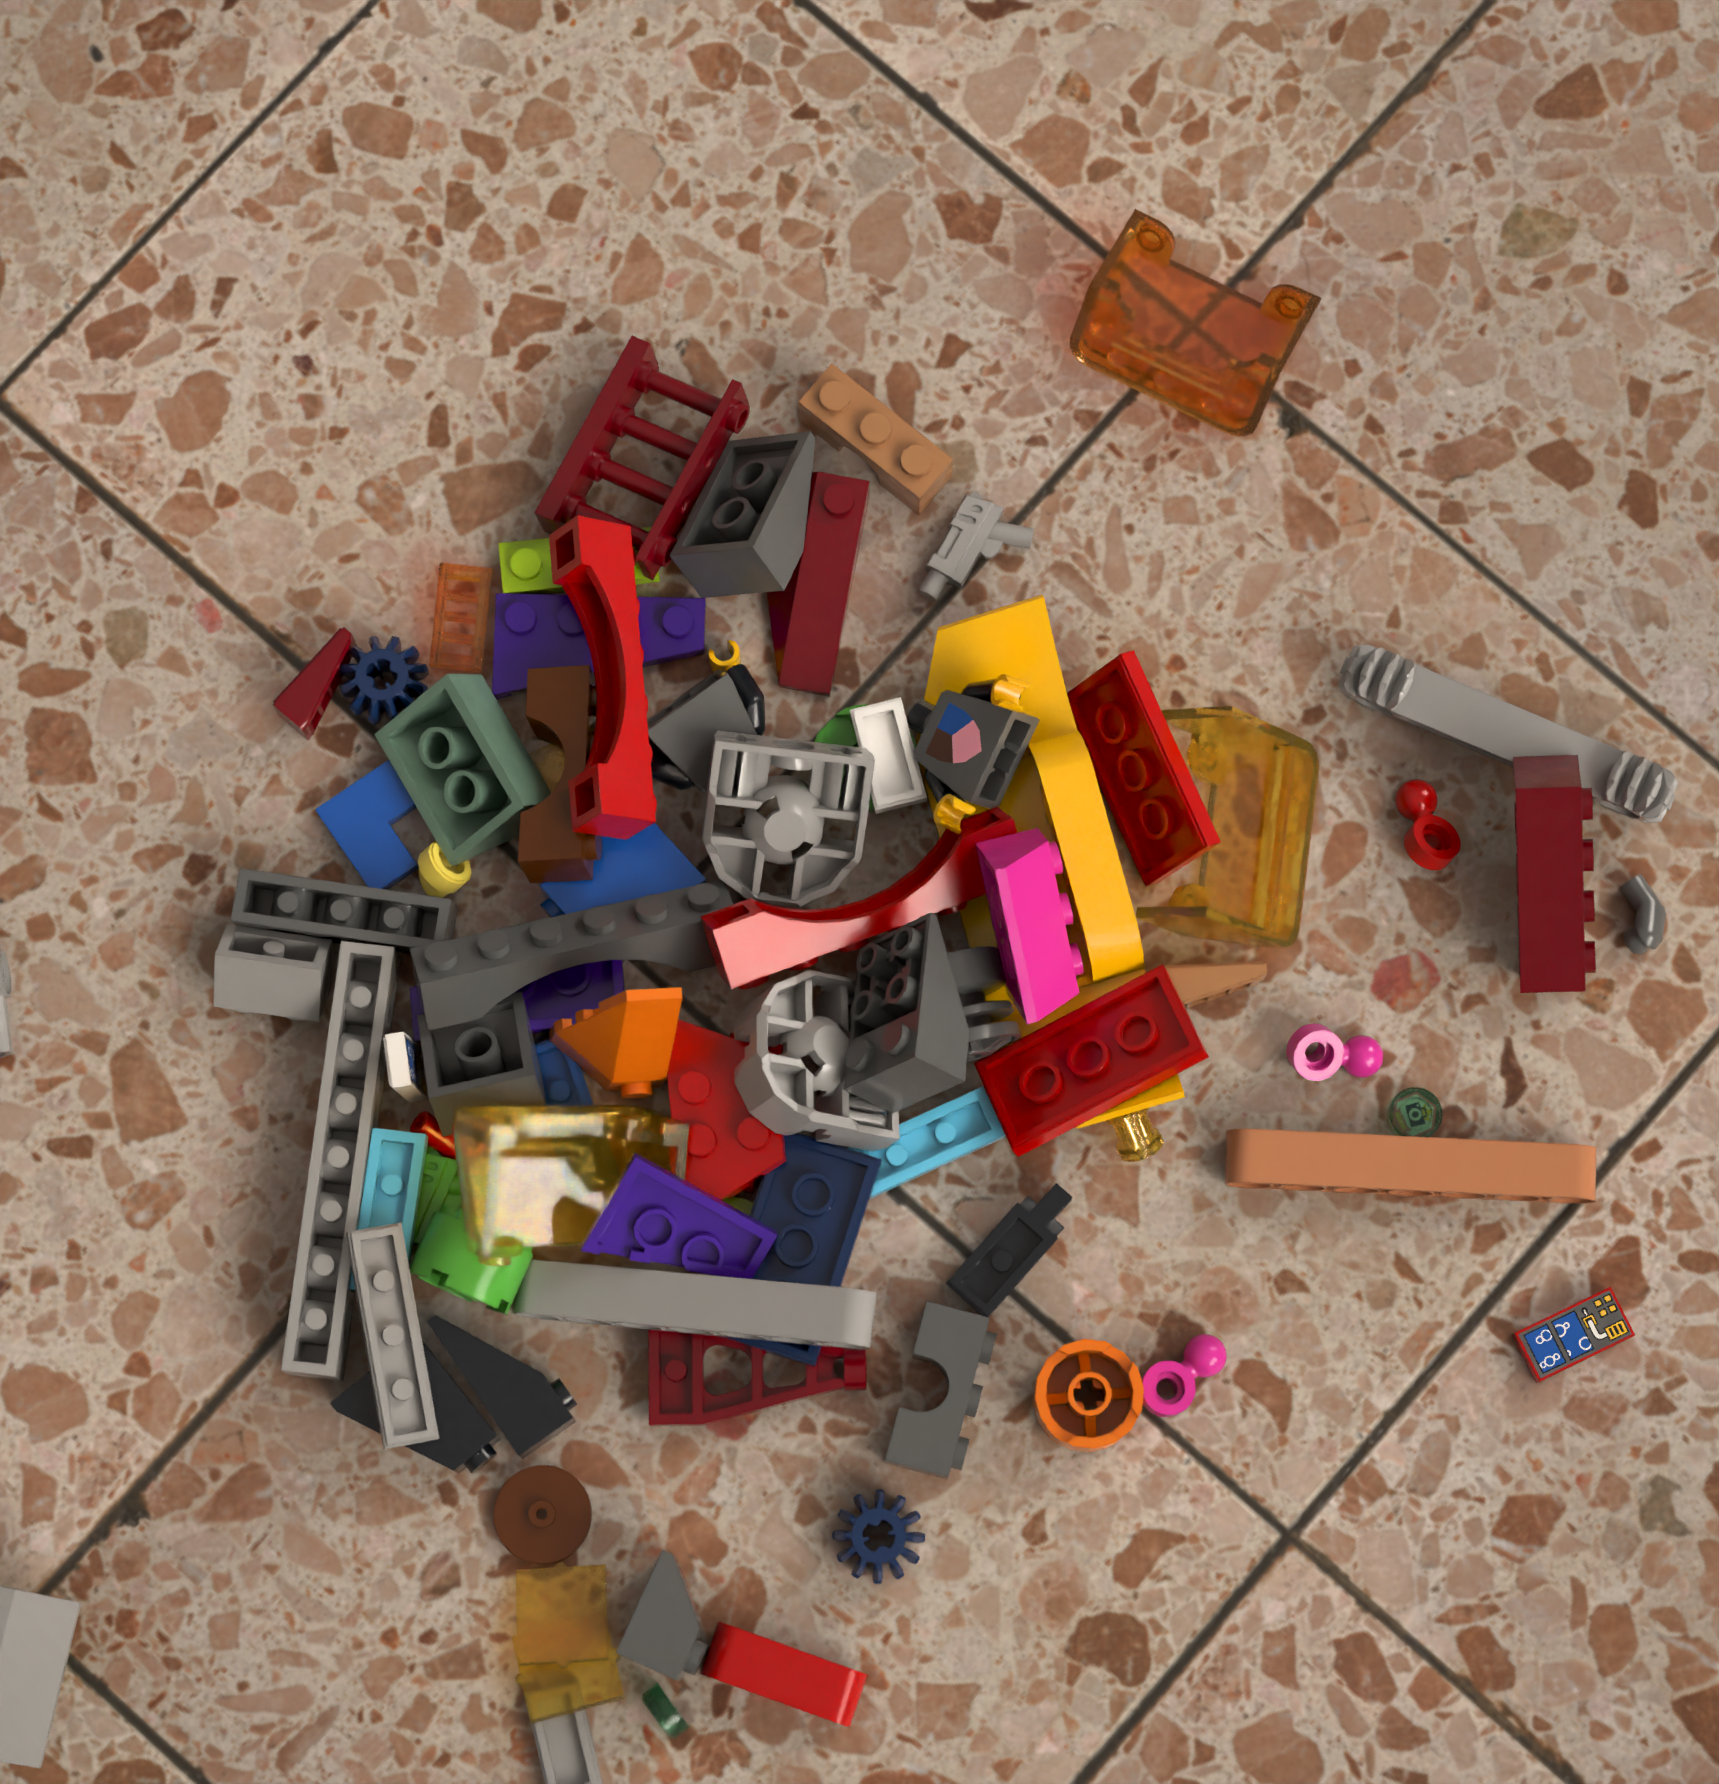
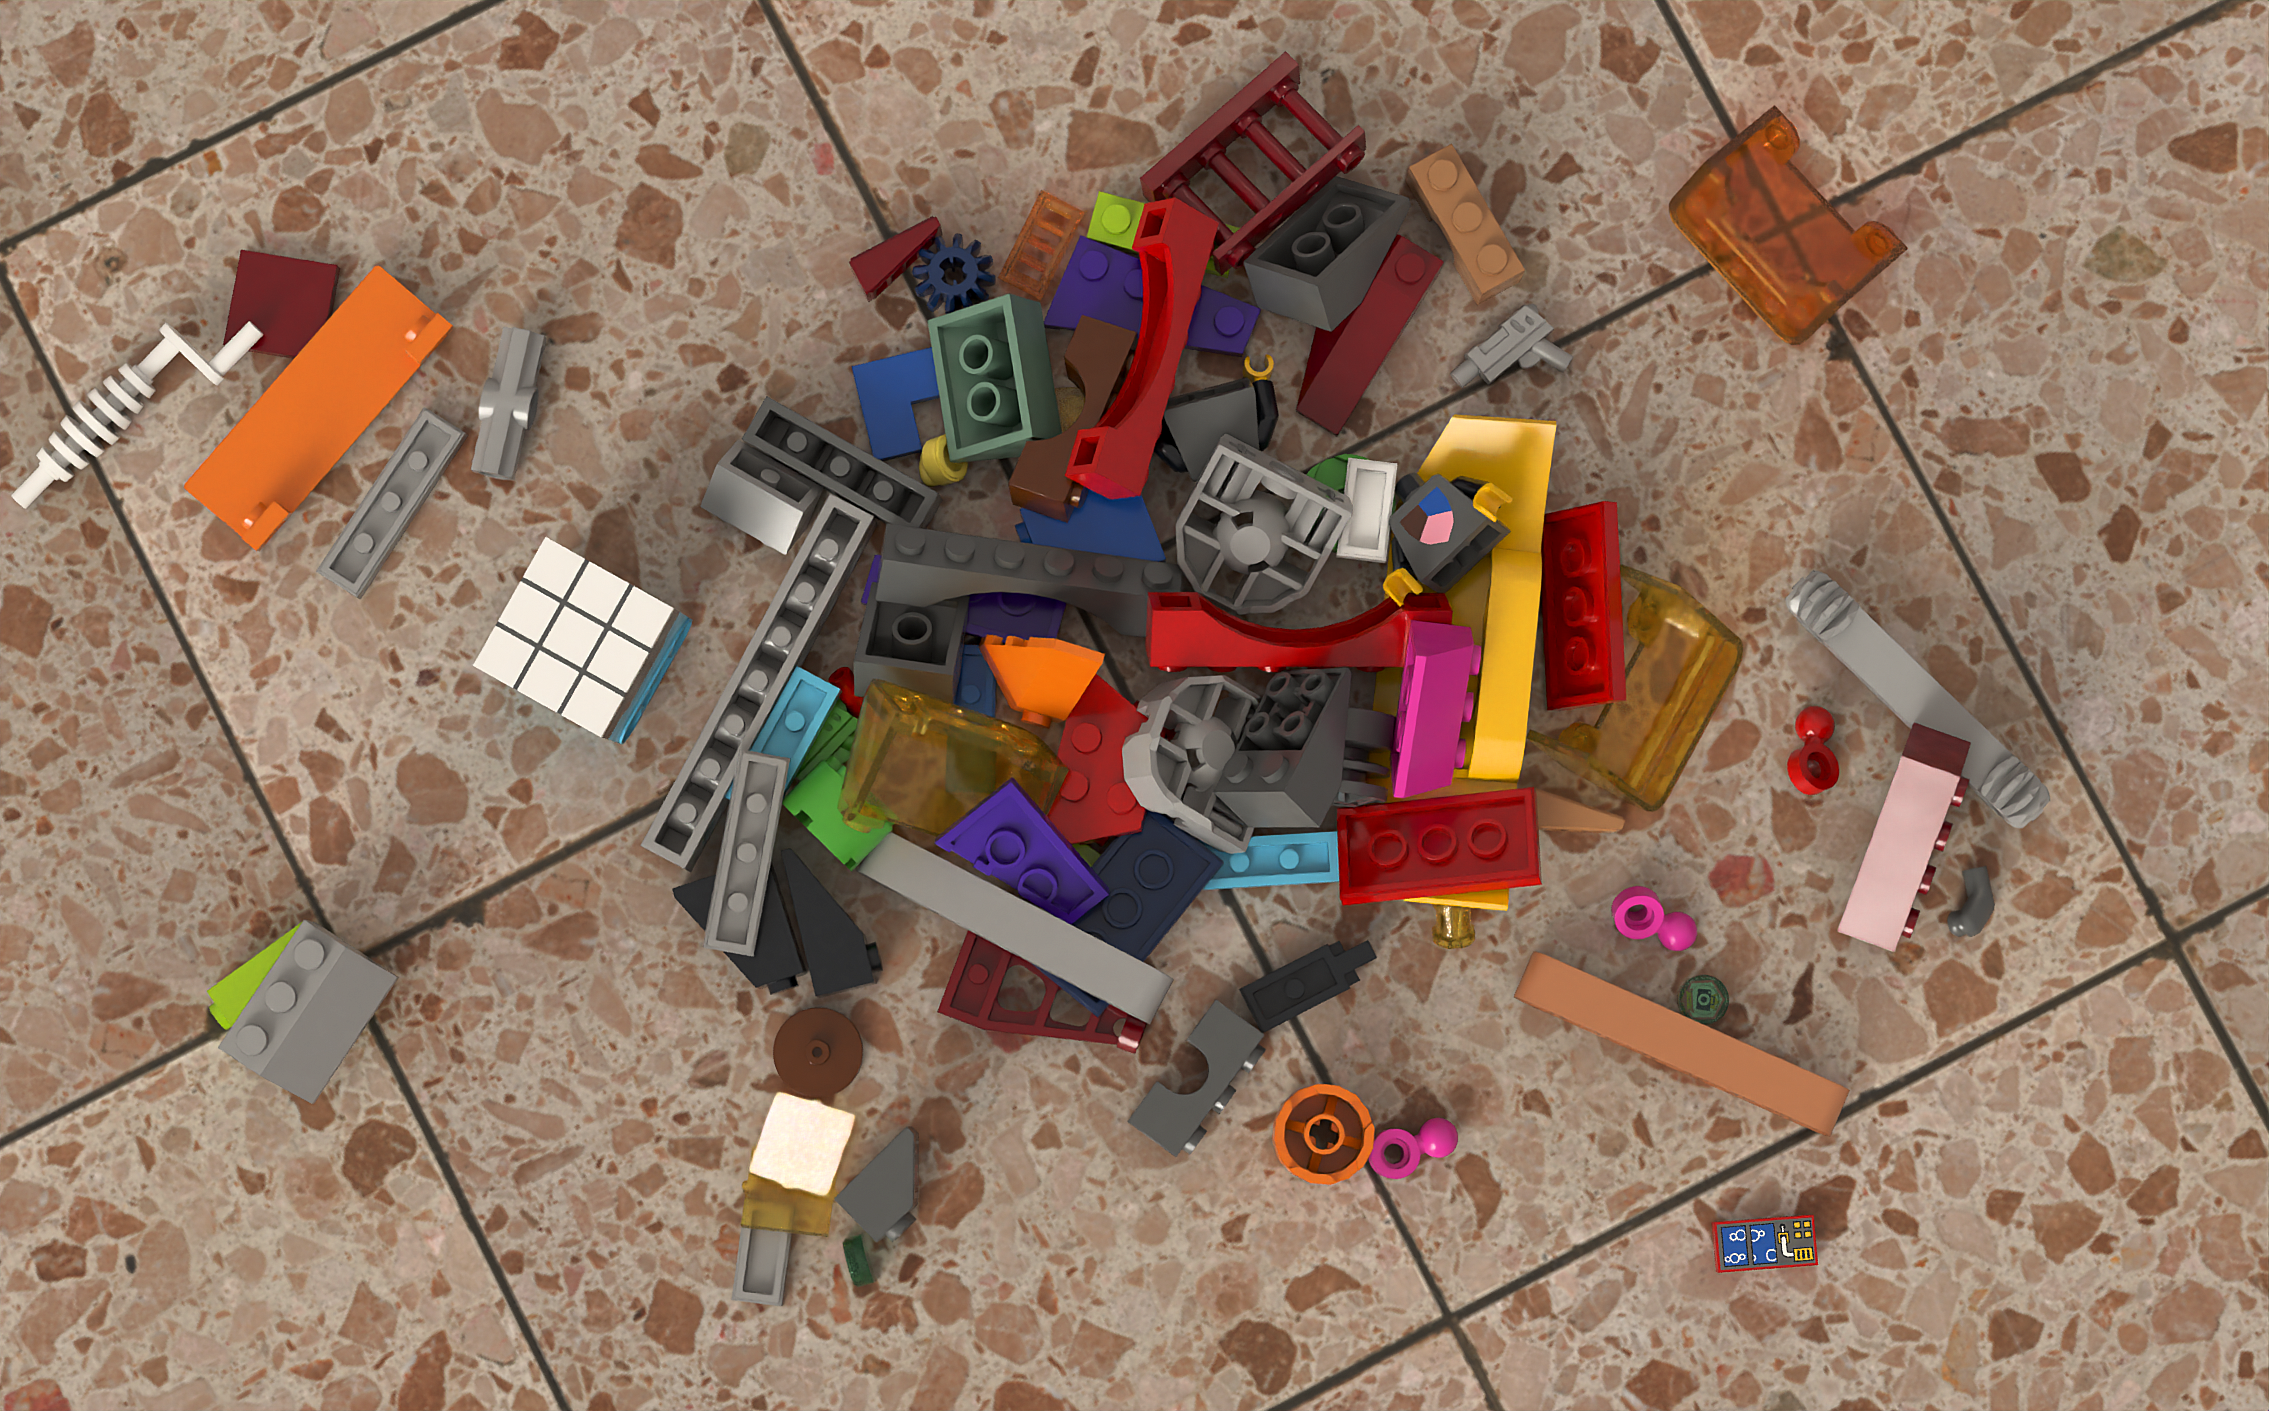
camera: 20 degrees right, 5 degrees up
(146, 1183) = (583, 642): none -> white piece
(405, 1066) = (844, 623): white tile -> none
(784, 1674) = (971, 1269): red beam -> none
(874, 1518) = (1099, 1166): dark blue gear -> none

